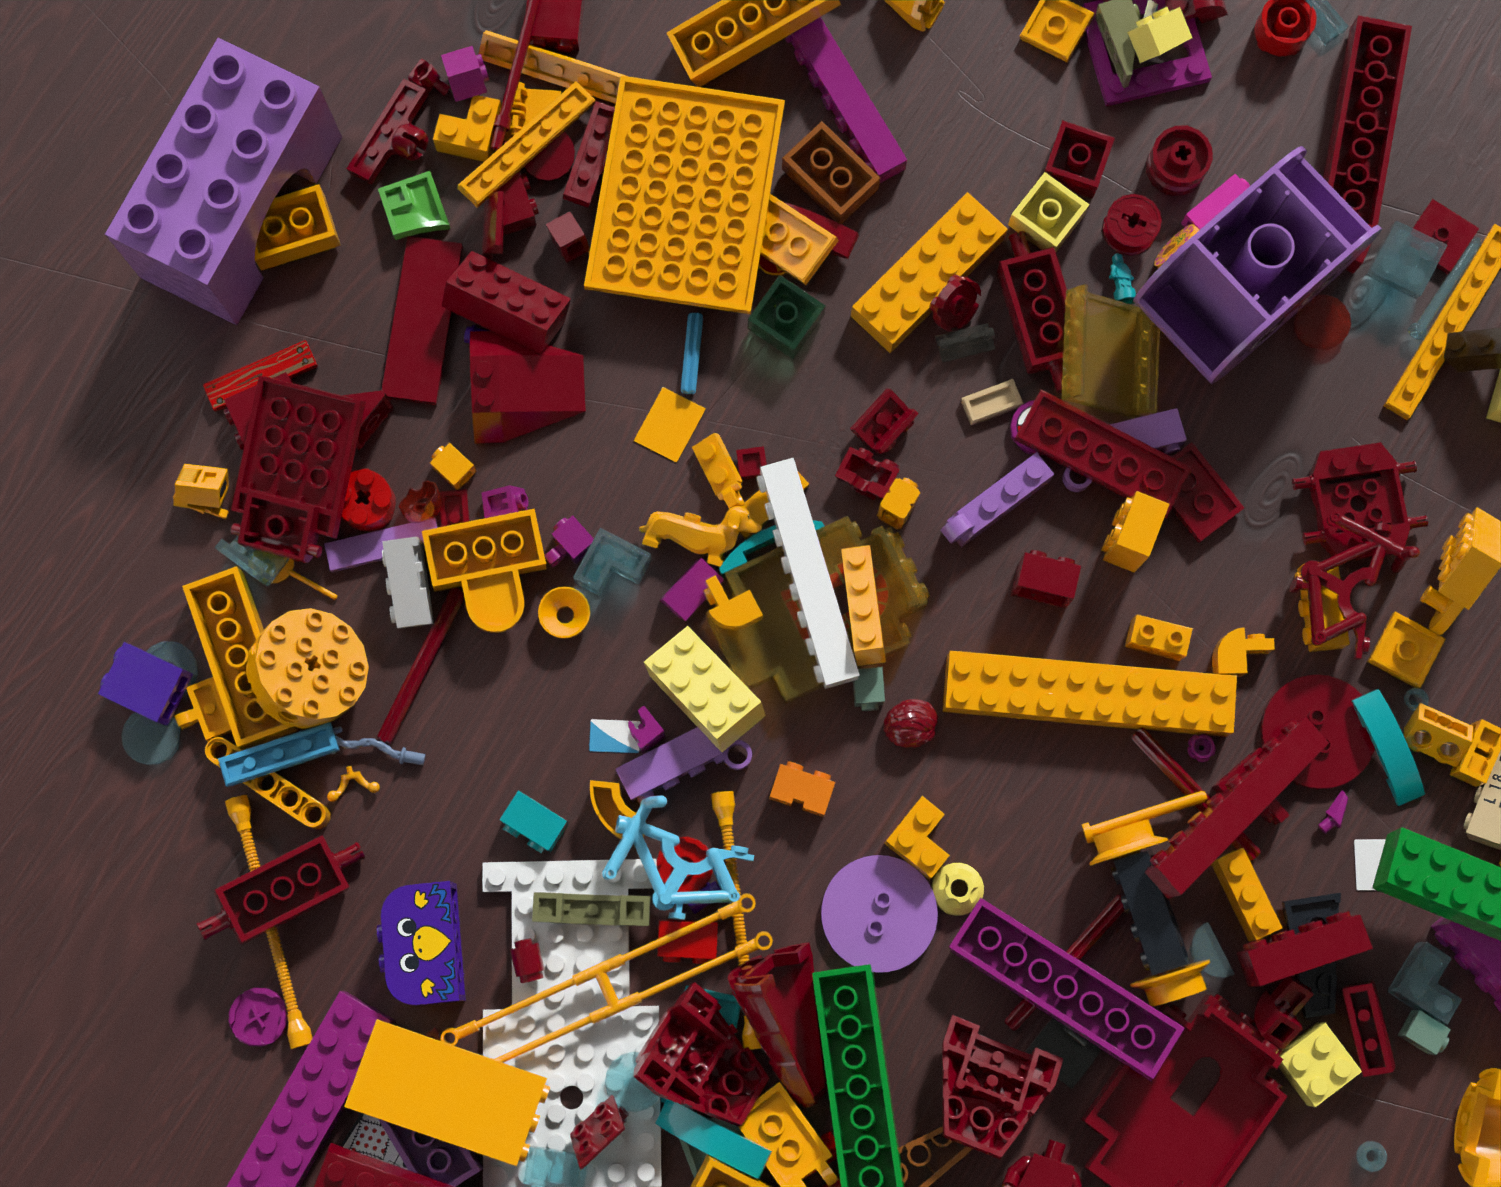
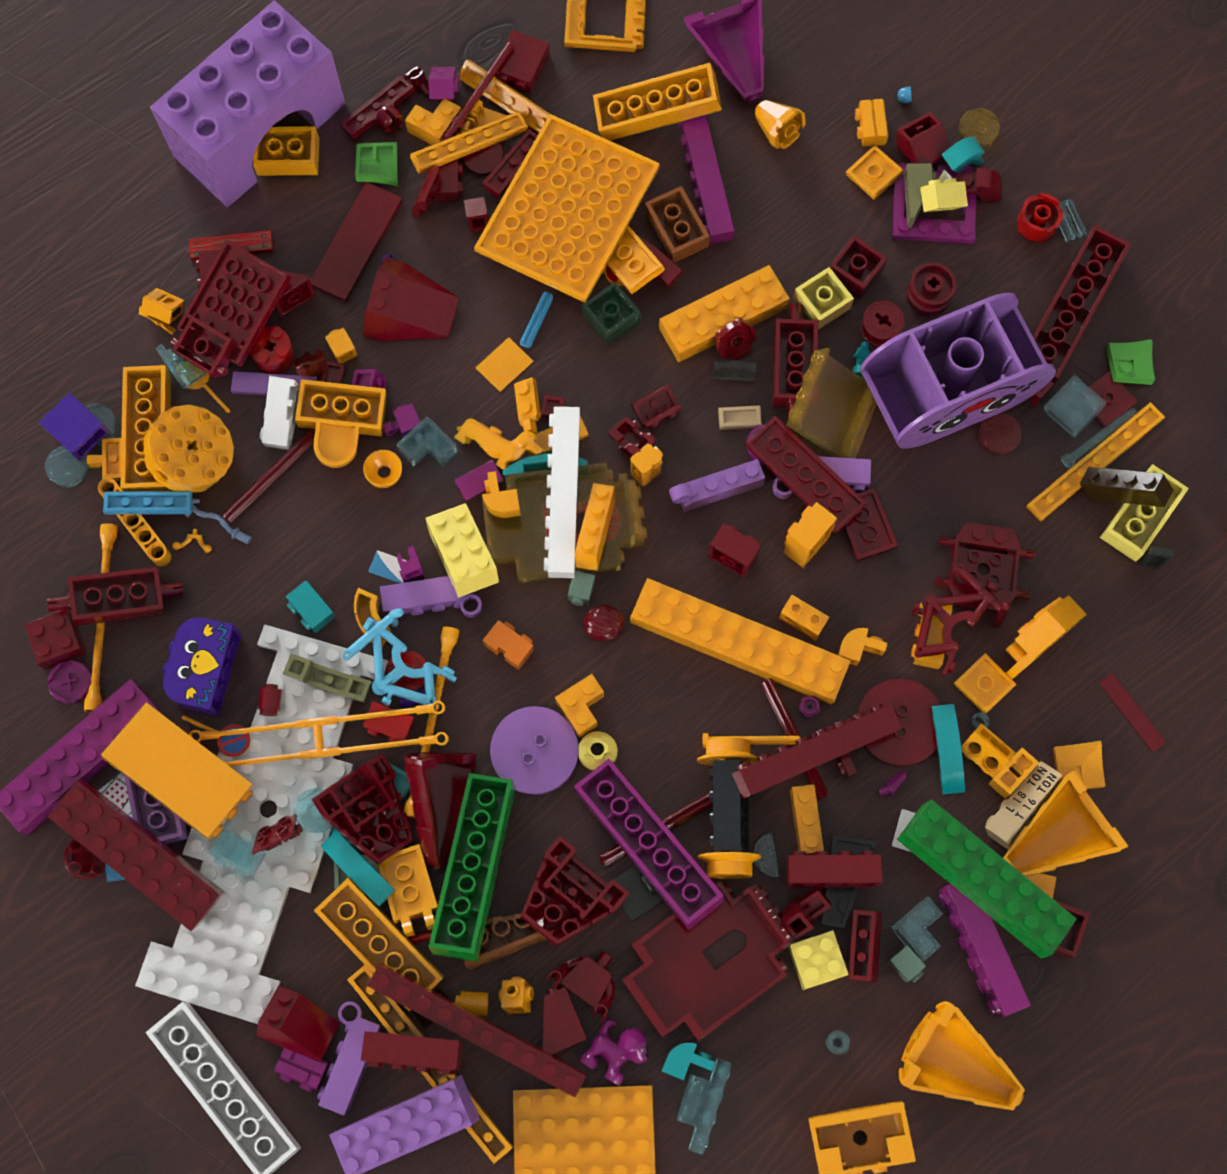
camera: 20 degrees right, 5 degrees down
(221, 969) = (55, 639): none -> dark red brick
(496, 1034) = (229, 745): none -> piece
(505, 302) = (416, 244): dark red brick -> none
(1455, 178) = (1131, 362): none -> bright green plate

